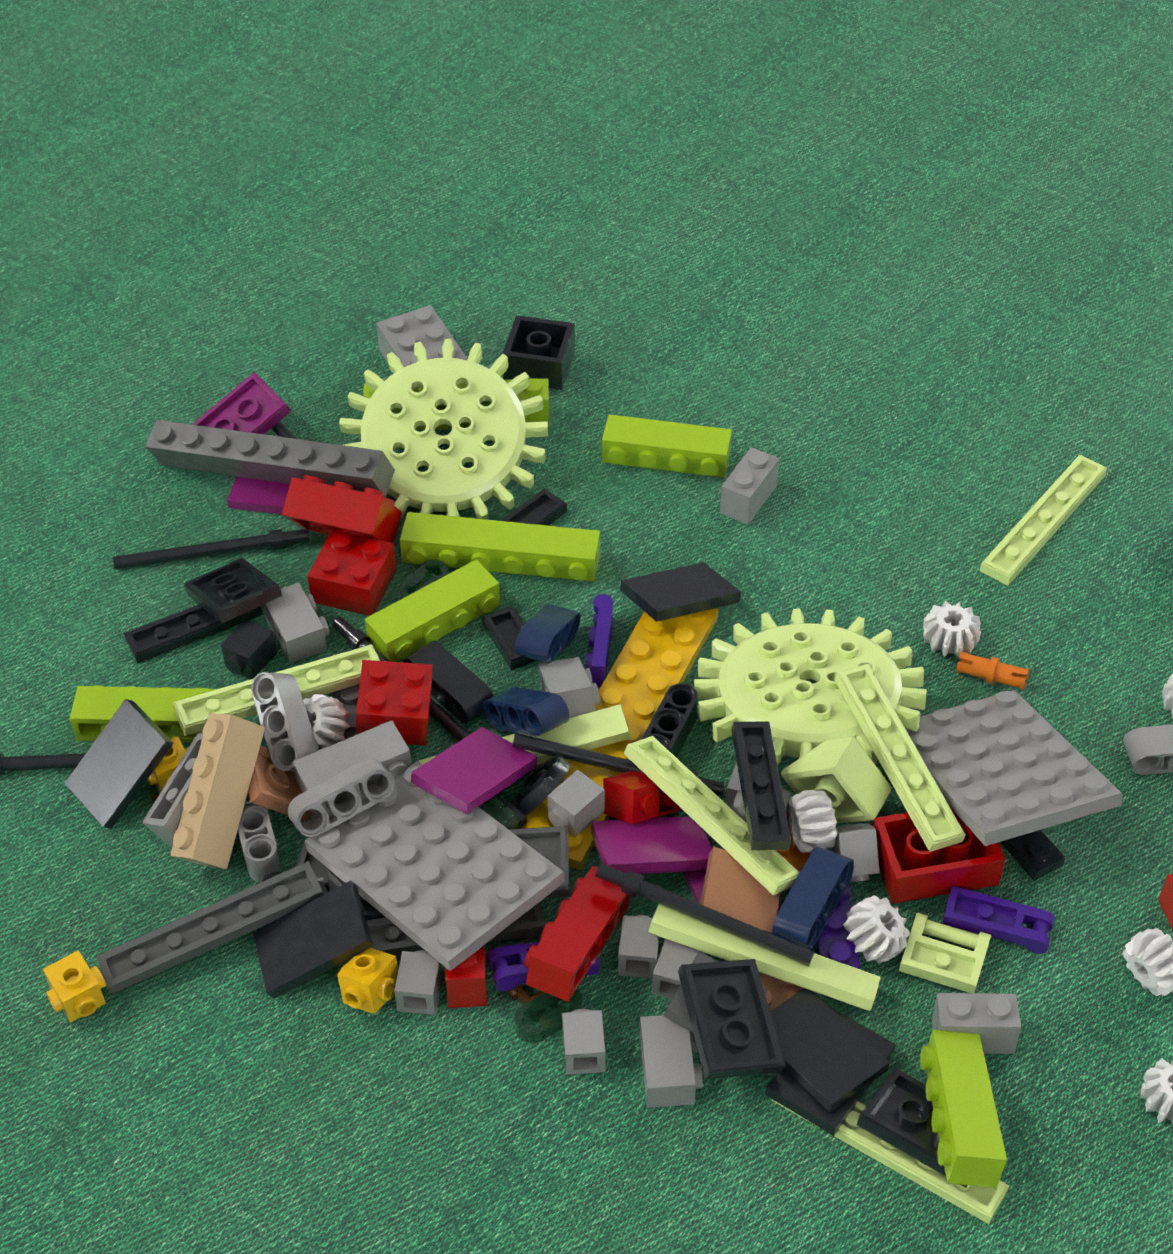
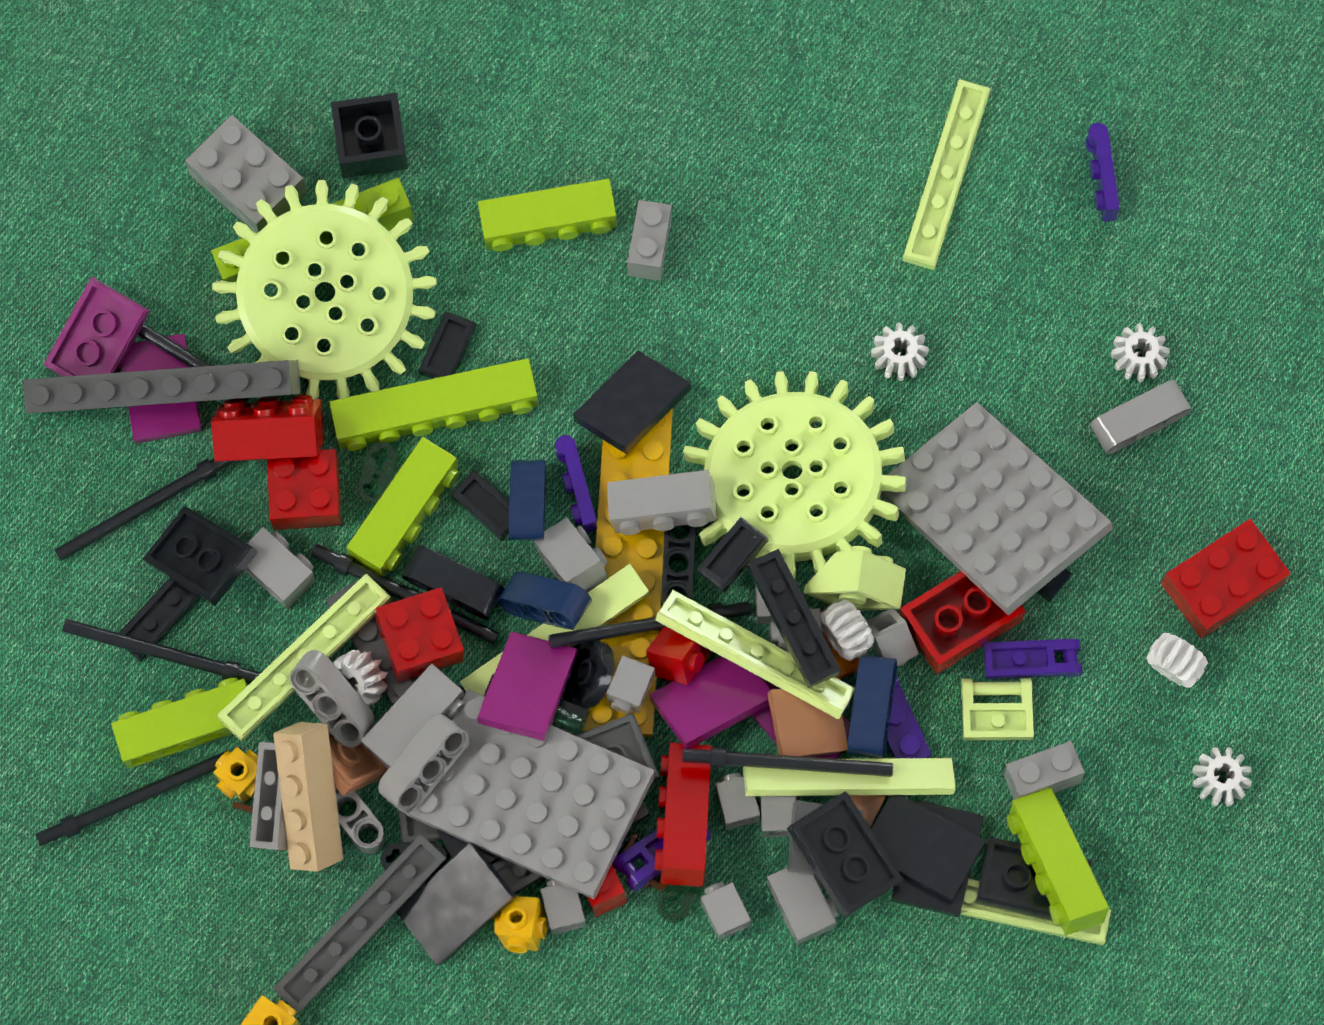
camera: 20 degrees left, 25 degrees up
(118, 763) = (195, 793): tile -> none
(148, 646) = (226, 670): none -> black bar
(248, 649) = (246, 616): black brick -> none
(673, 663) = (662, 502): none -> light grey brick
(716, 723) = (732, 554): none -> black tile
(876, 929) = (934, 713): white gear -> none
(899, 758) = (902, 538): yellowish green tile -> none
(993, 670) = (950, 386): orange pin -> none

